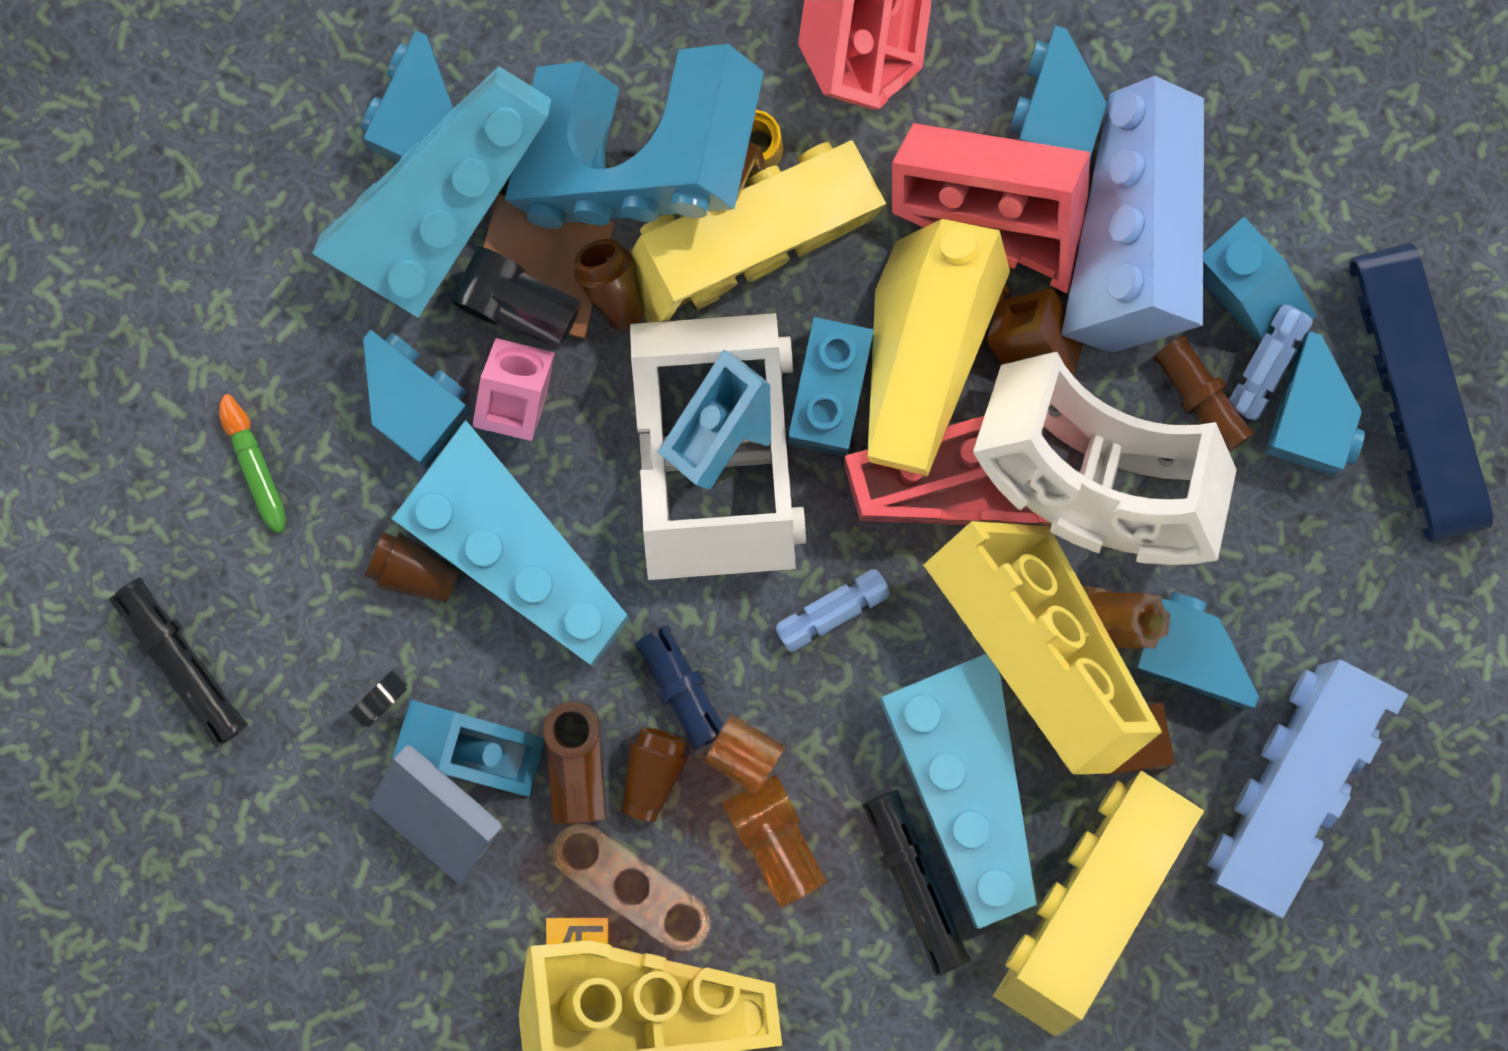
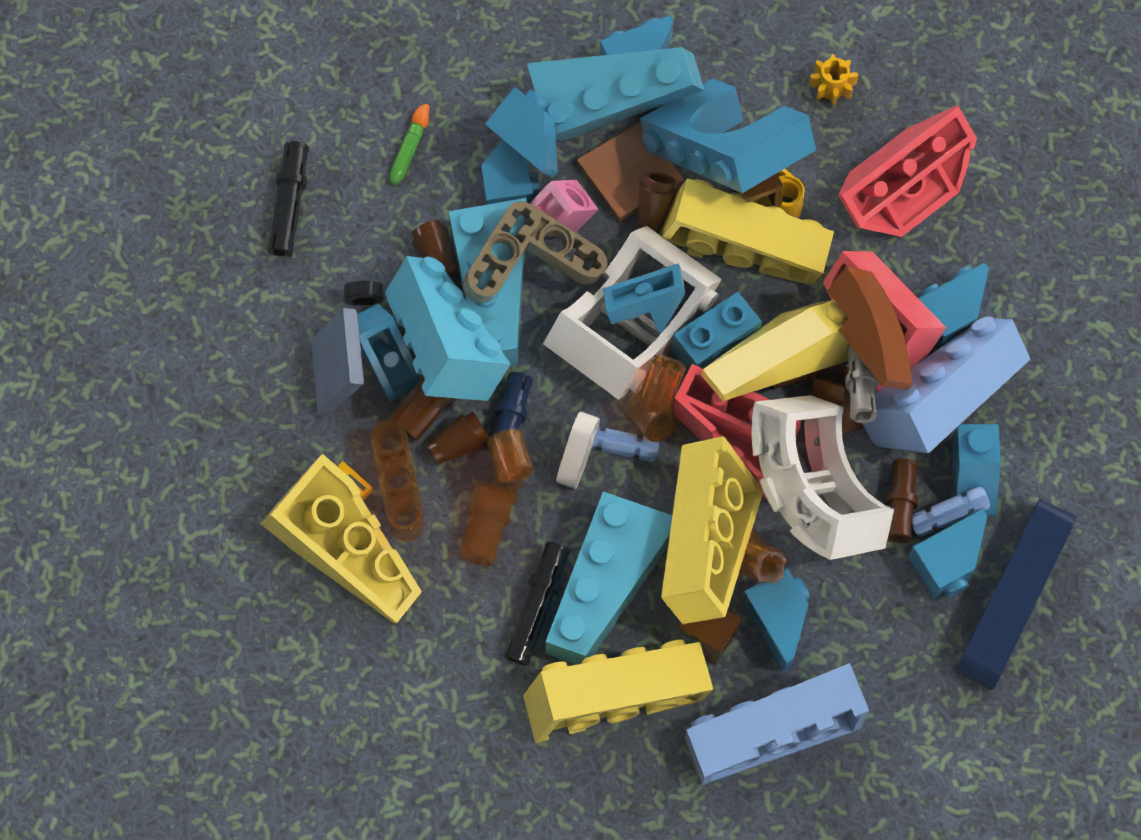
camera: 40 degrees right, 15 degrees down
(395, 339) = (527, 129): none -> dark azure slope
(501, 292) = (600, 161): black piece -> none
(526, 468) = (532, 239): none -> dark tan beam
(530, 676) = (444, 332): none -> medium azure wedge
(802, 667) = (577, 450): none -> white beam
(837, 537) = (652, 406): none -> clear orange piece
(1020, 235) = (872, 327): none -> dark orange slope
(1053, 305) = (862, 388): none -> light grey pin

